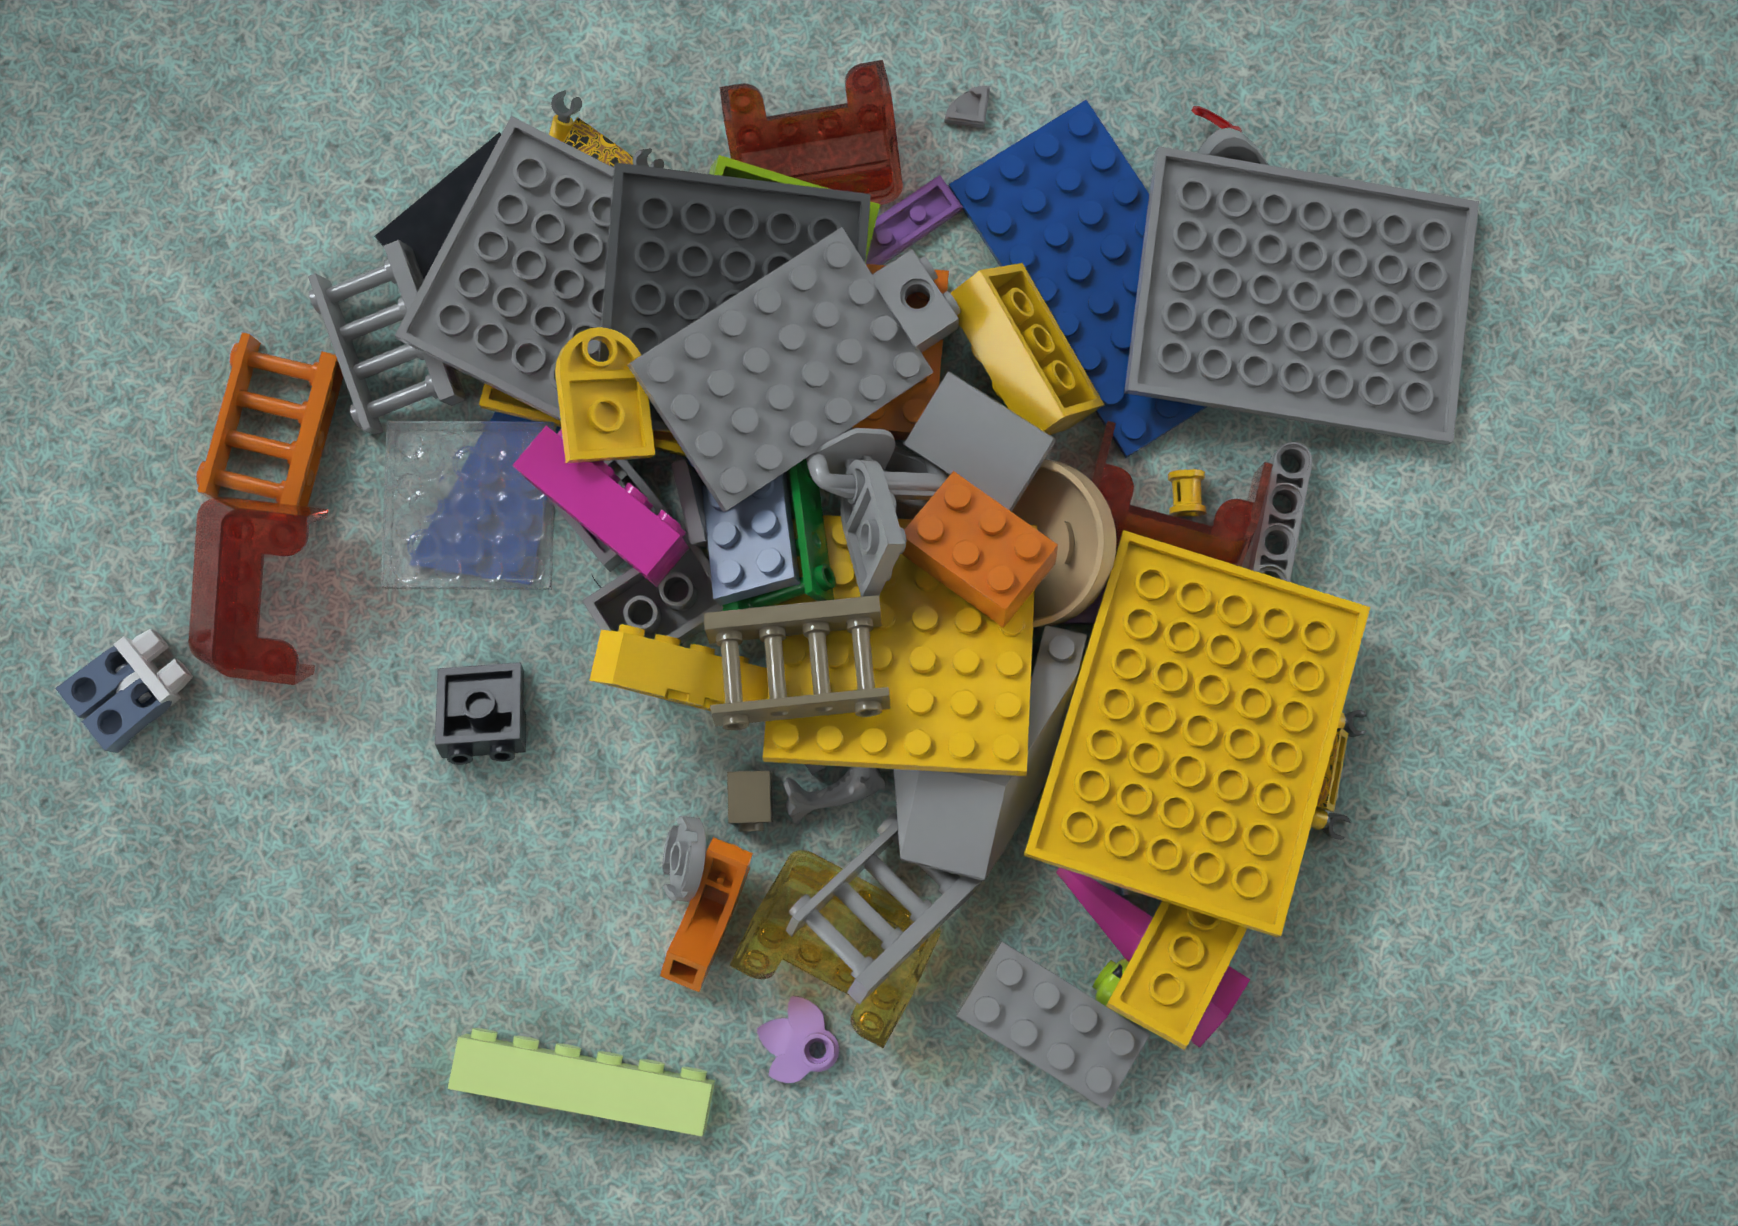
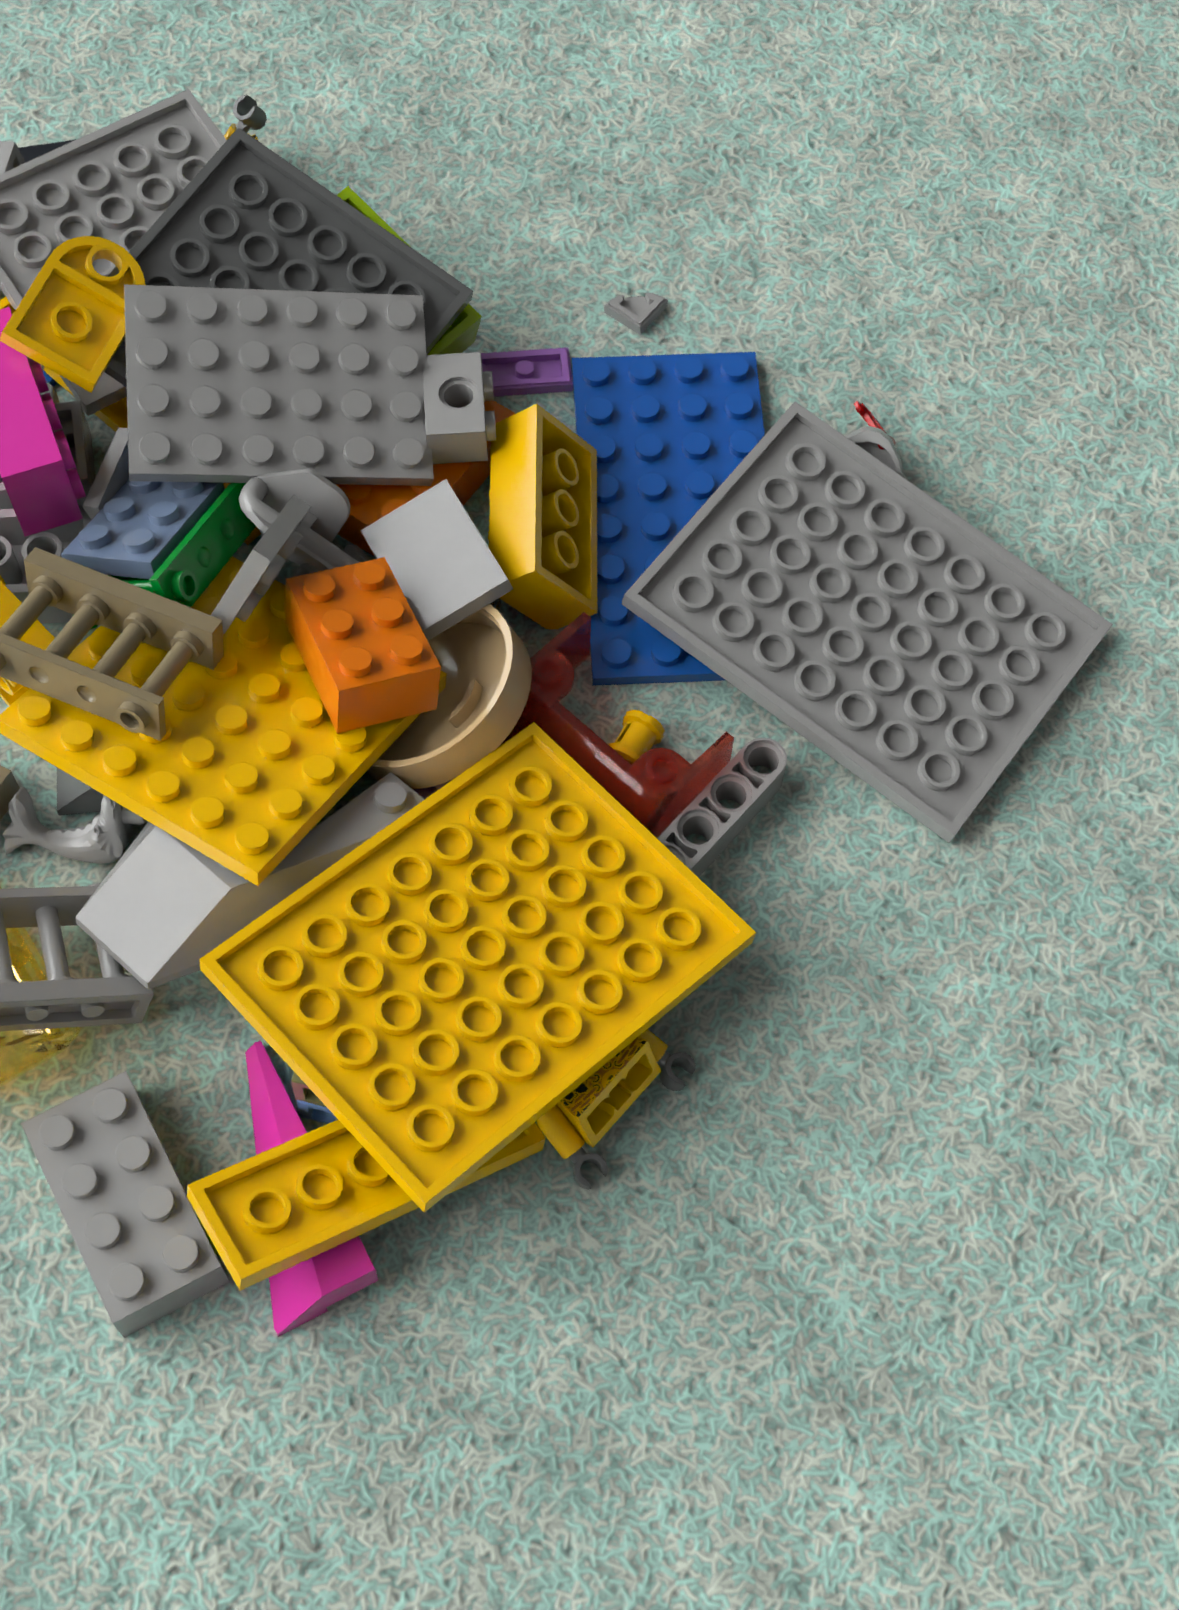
camera: 20 degrees right, 20 degrees down
(829, 146) = (505, 274): clear red windscreen -> none

